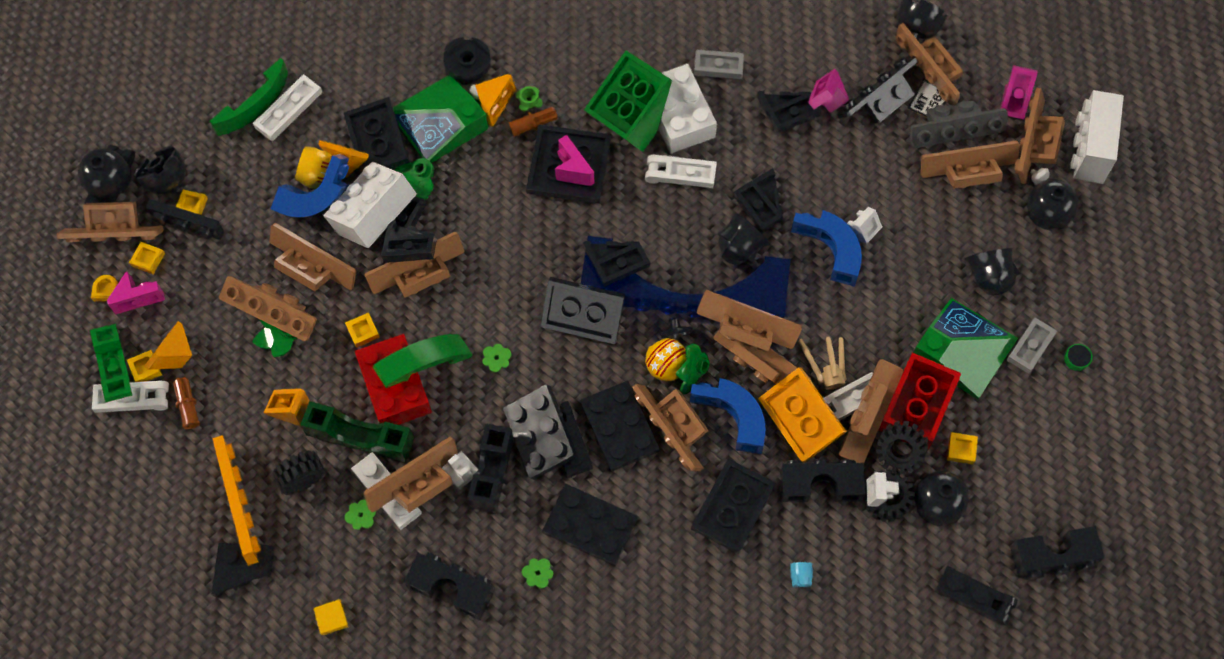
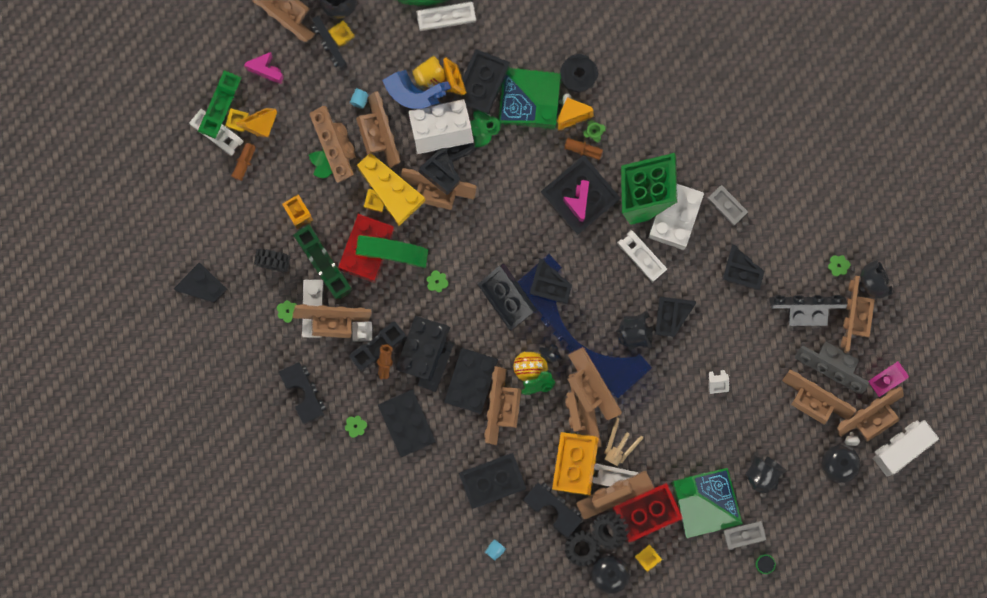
camera: 35 degrees right, 15 degrees up
(103, 287) = (252, 49): yellow tile -> none
(147, 258) = (290, 48): yellow tile -> none
(237, 499) = (227, 247): light orange plate -> none
(261, 248) = (359, 98): none -> medium azure hose
(330, 617) = (226, 355): yellow tile -> none
(374, 302) = (392, 190): none -> yellow wing
(512, 476) = (384, 361): none -> dark orange axle
(742, 408) = (543, 443): blue arch -> none
(829, 92) = (774, 280): dark pink slope -> none
(838, 238) = (695, 378): blue arch -> none
(872, 36) = (844, 265): none -> bright green plant
(879, 489) = (575, 542): white tile -> none
(925, 98) = (833, 333): sticker -> none

